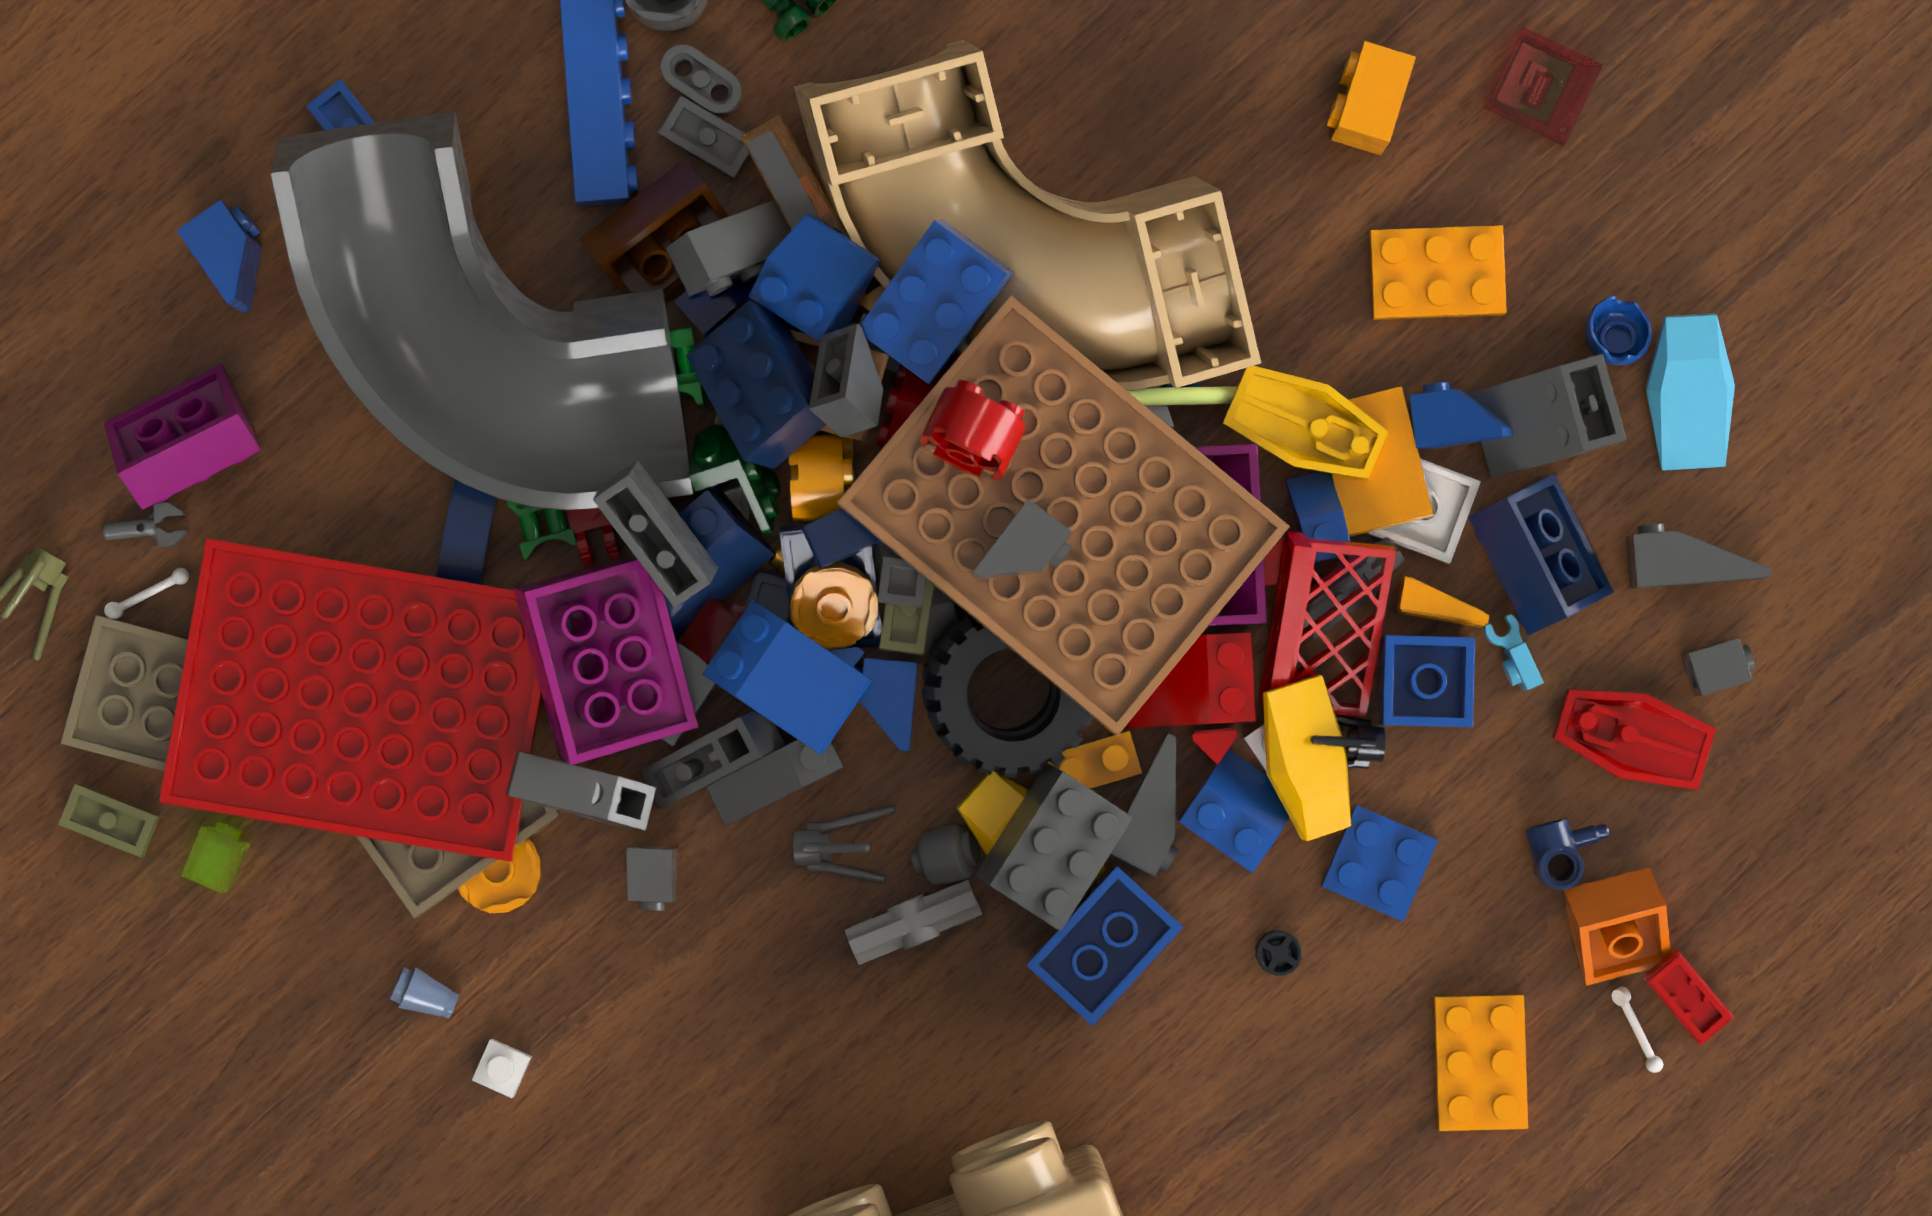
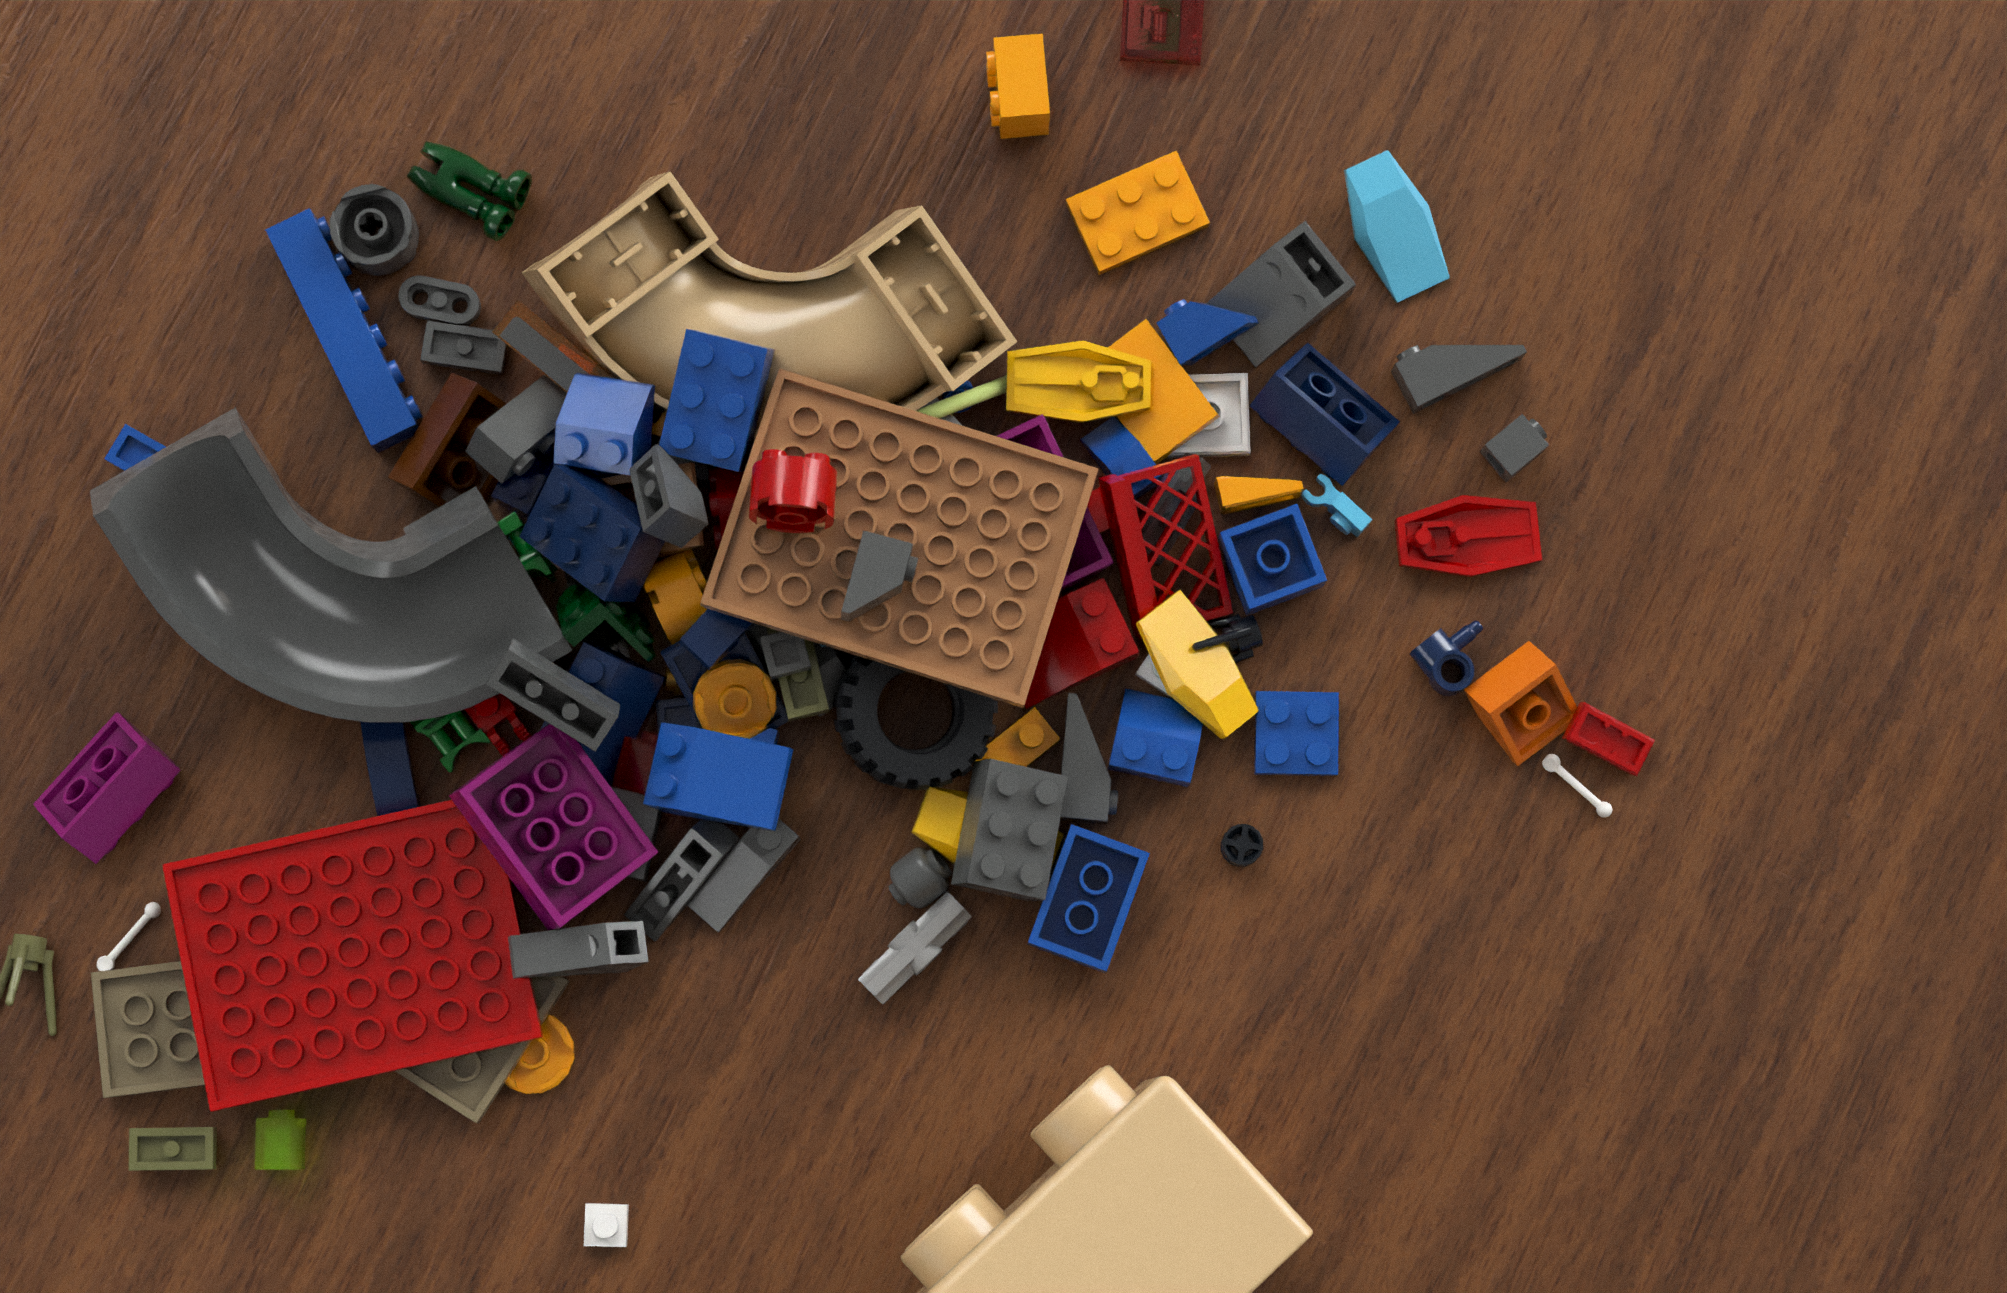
camera: 30 degrees left, 5 degrees down
(148, 527) = (108, 878): dark grey bar -> none
(226, 250) = (80, 605): blue slope -> none
(423, 994) = (510, 1187): sand blue cone -> none
(652, 876) = (670, 999): dark grey slope -> none
(814, 847) = (802, 918): dark grey plant -> none
(891, 697) = (817, 761): blue slope -> none
(1214, 742) = (1110, 686): red slope -> none
(1480, 1062) = (1455, 869): light orange plate -> none
(1618, 331) = (1311, 199): blue hair -> none

